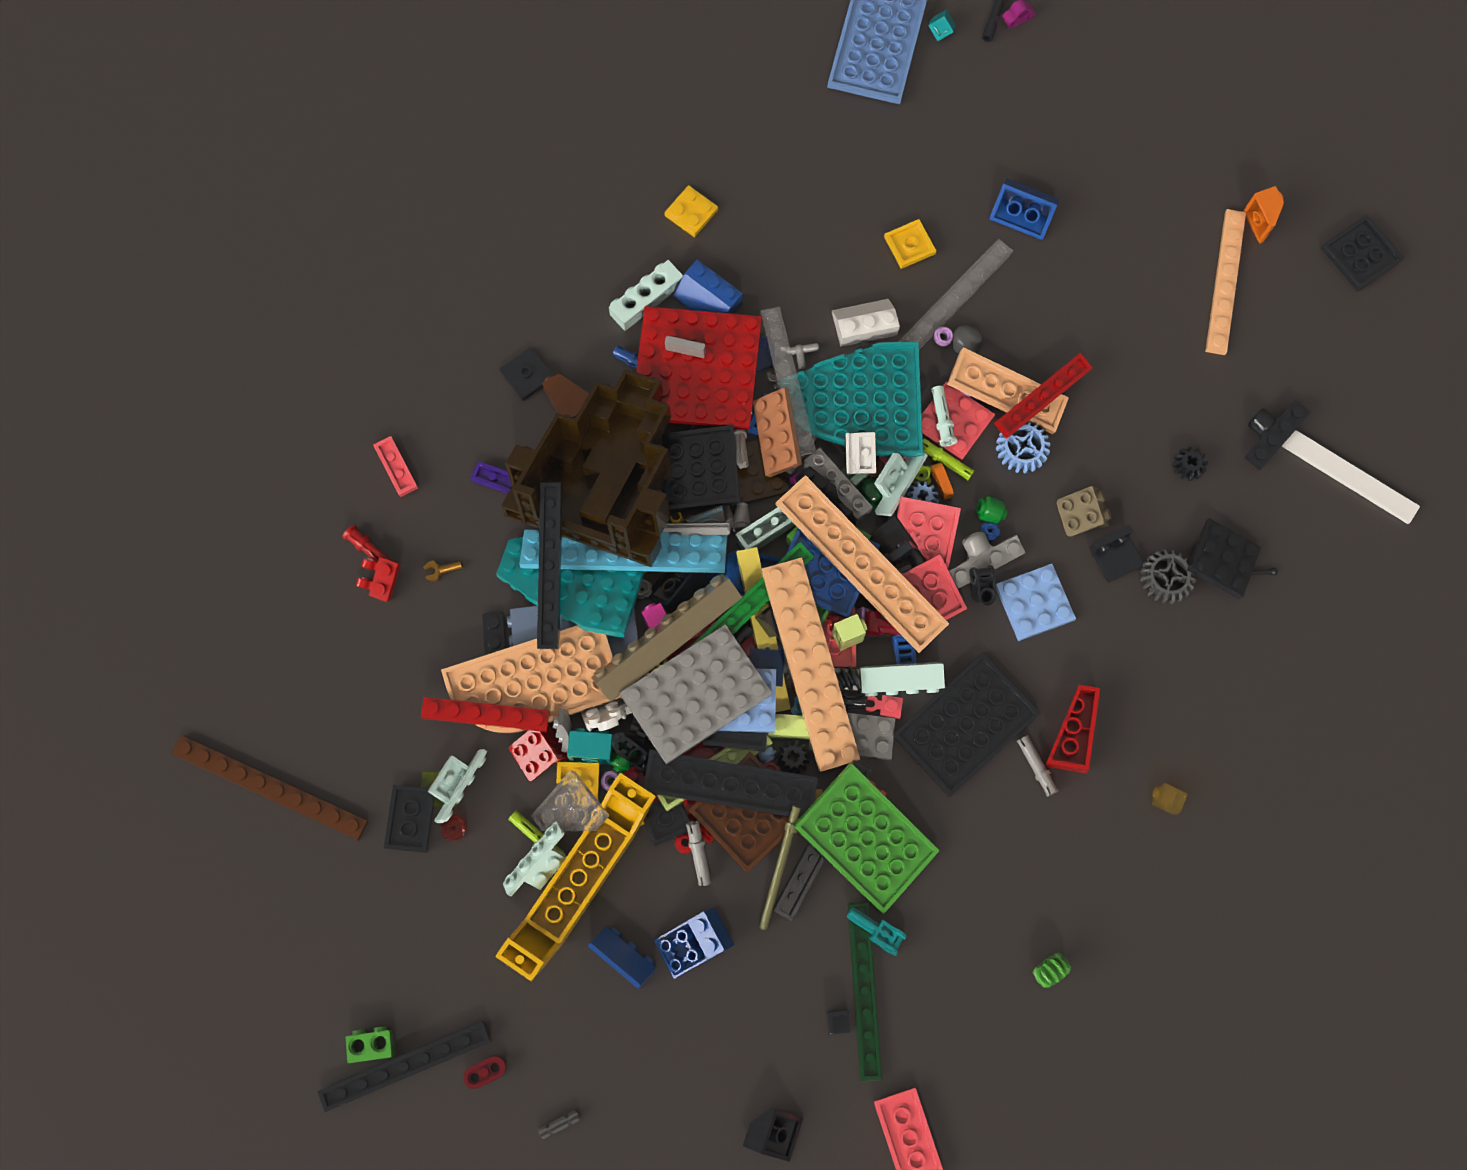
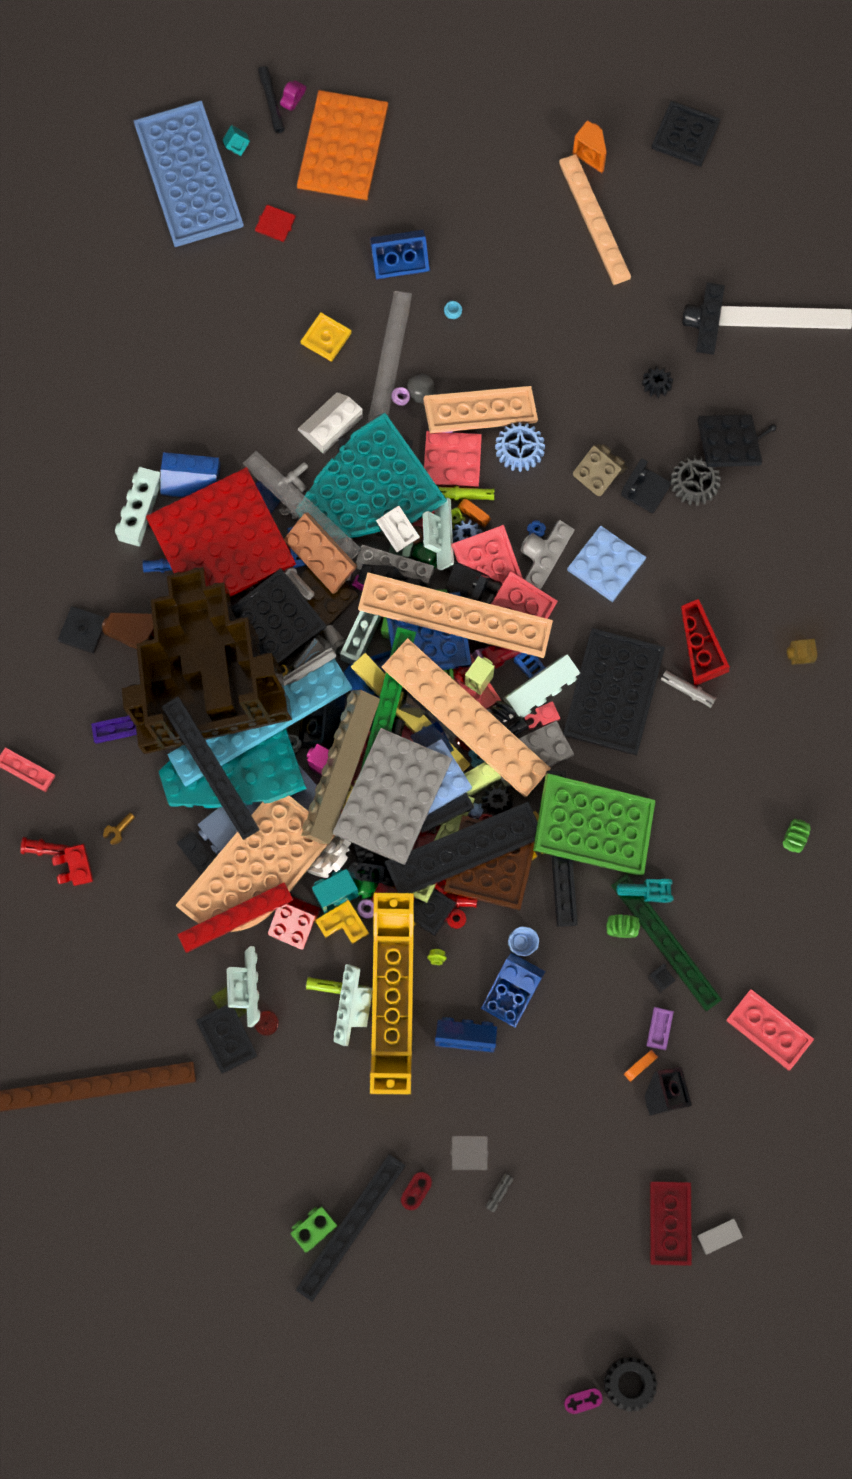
camera: 30 degrees left, 0 degrees up
(556, 1068) = (469, 1153): none -> clear piece
(563, 726) = (302, 887): light grey slope -> none
(571, 806) = (350, 945): clear plate -> none
(644, 867) = (437, 956): none -> lime plate
(685, 346) = (202, 528): light grey tile -> none
(691, 211) = (129, 415): yellow plate -> none
(697, 846) = (467, 913): light grey pin -> none
(732, 903) = (523, 941): none -> light blue hair
(765, 1092) = (641, 1065): none -> orange beam
(790, 830) = (532, 854): olive bar -> none
(805, 1068) = (659, 1028): none -> medium lavender plate
(832, 950) = (623, 926): none -> bright green gear
(930, 117) = (275, 223): none -> red piece
(944, 424) = (448, 466): light aqua pin -> none
(983, 580) = (557, 571): black piece -> none
(991, 509) = (527, 511): green head -> none
(1035, 83) = (342, 145): none -> orange plate
(1041, 287) = (453, 310): none -> medium azure plate
(1043, 395) = (511, 396): red plate -> none

